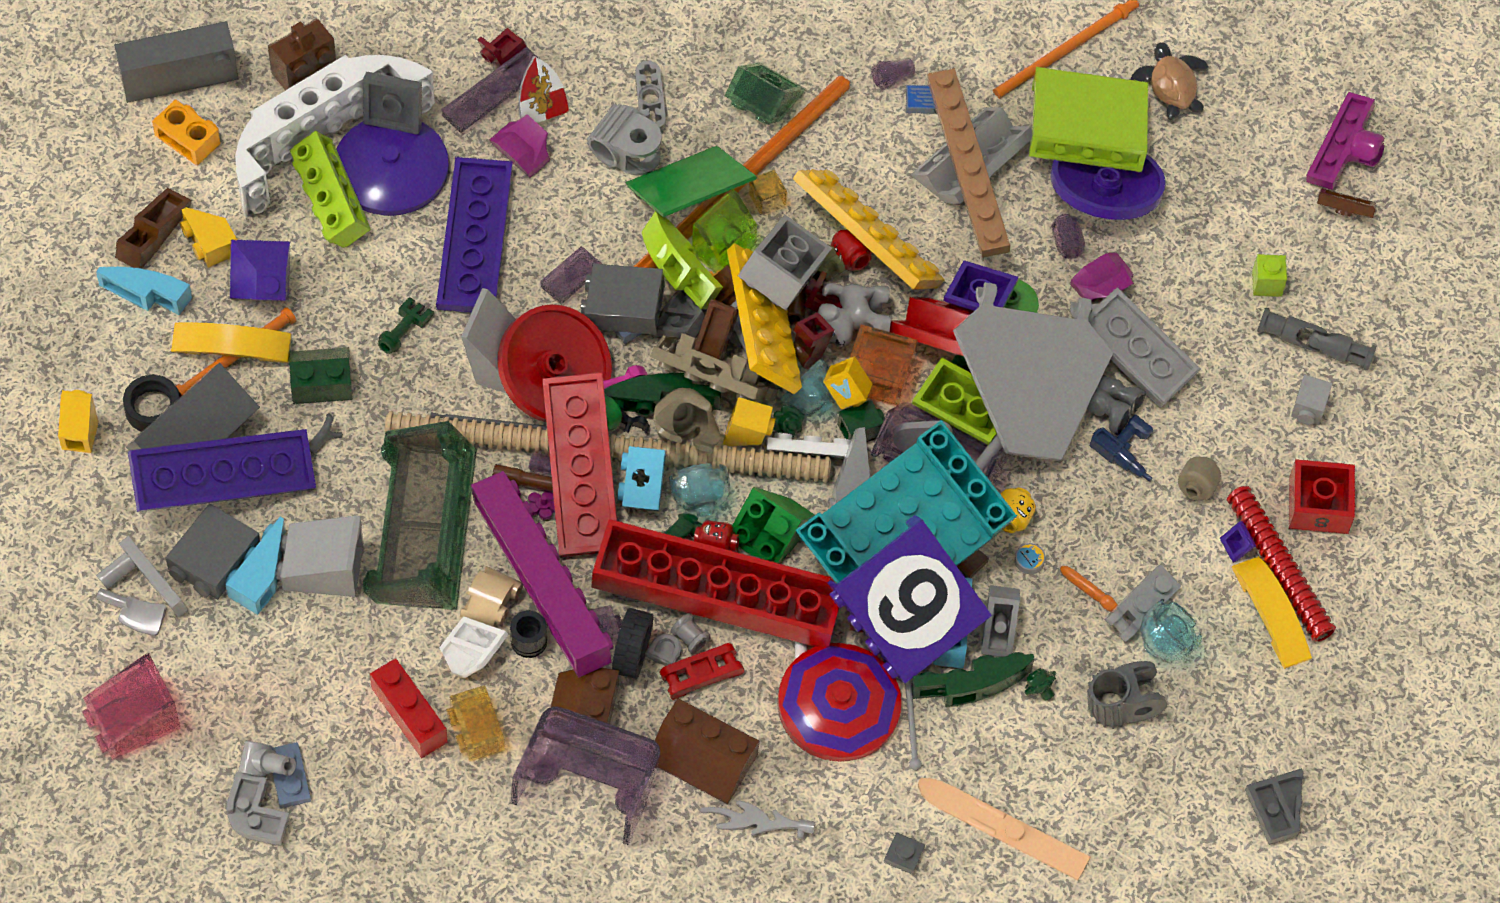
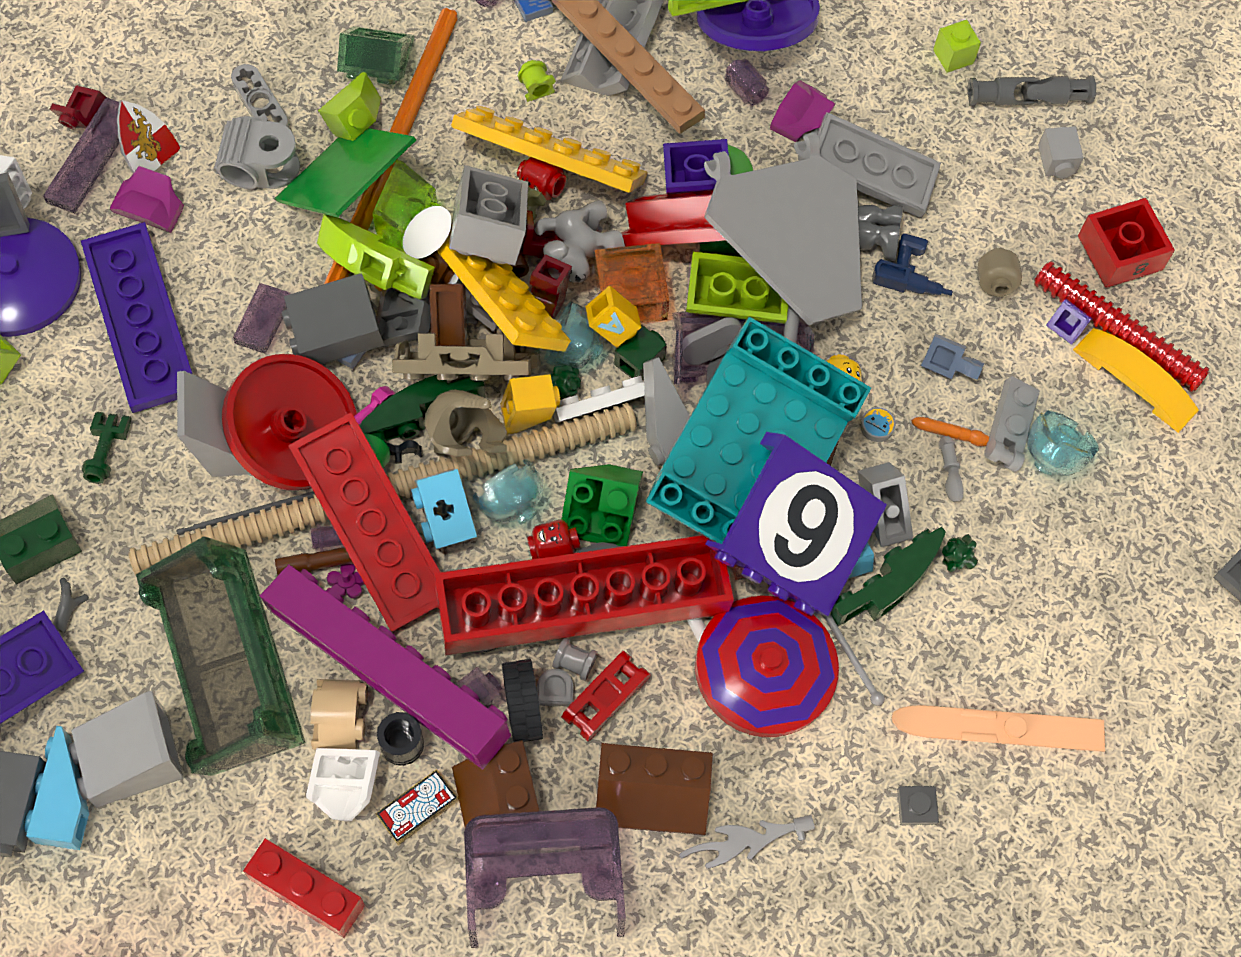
camera: 25 degrees left, 5 degrees up
(476, 723) = (389, 871): clear yellow brick -> none
(519, 689) = (417, 807): none -> tile
(684, 525) = (511, 540): dark green arm -> none
(723, 132) = (352, 108): none -> lime slope
(730, 256) = (427, 232): none -> white sticker
(765, 187) = (425, 149): clear yellow piece -> none
(888, 166) = (536, 80): none -> lime brick
(1073, 615) = (953, 484): none -> light grey piece
(1116, 529) = (947, 357): none -> sand blue plate
(1125, 683) = (1041, 520): dark grey piece -> none

